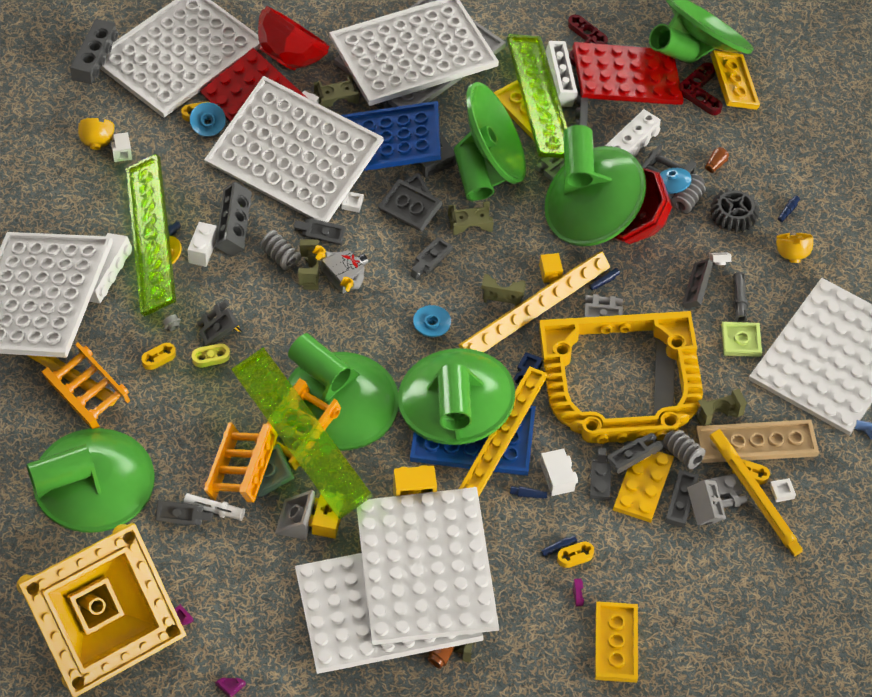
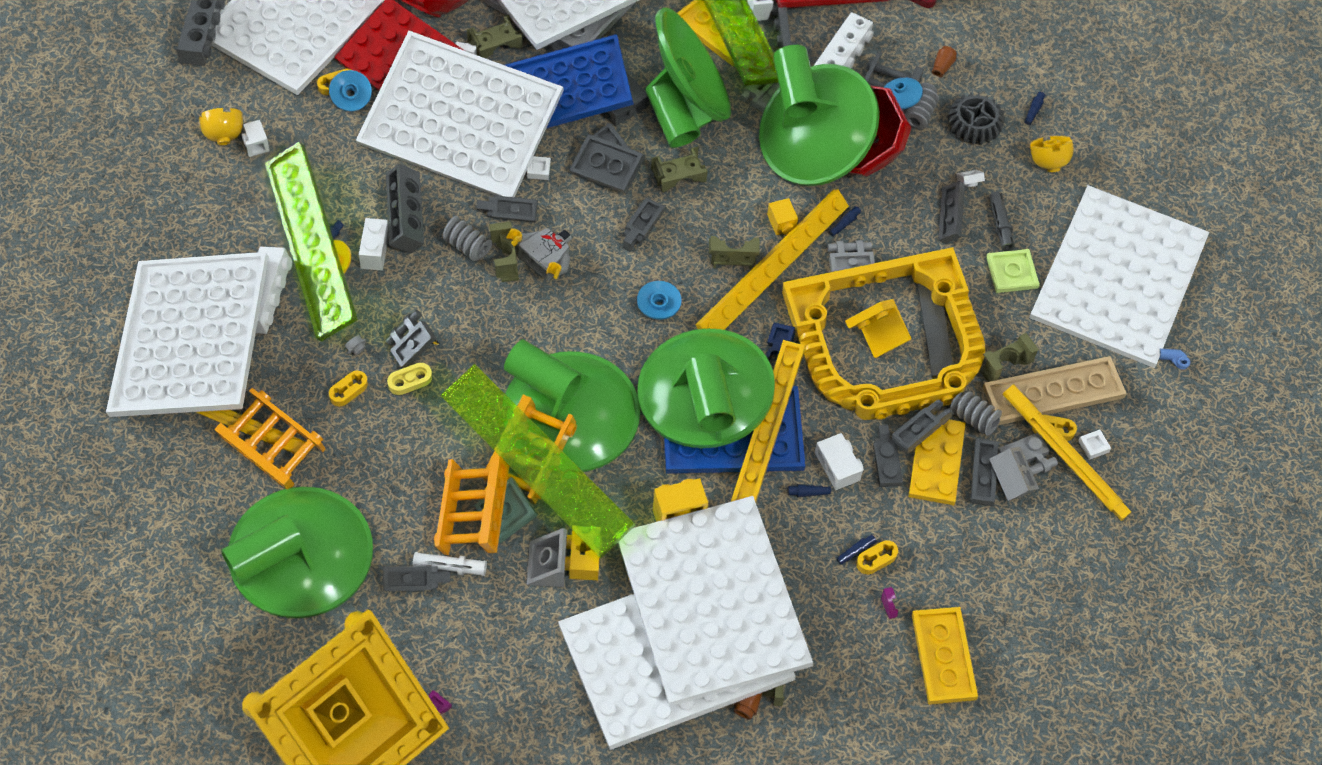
camera: 10 degrees left, 5 degrees up
(615, 366) = (881, 327): none -> yellow bracket

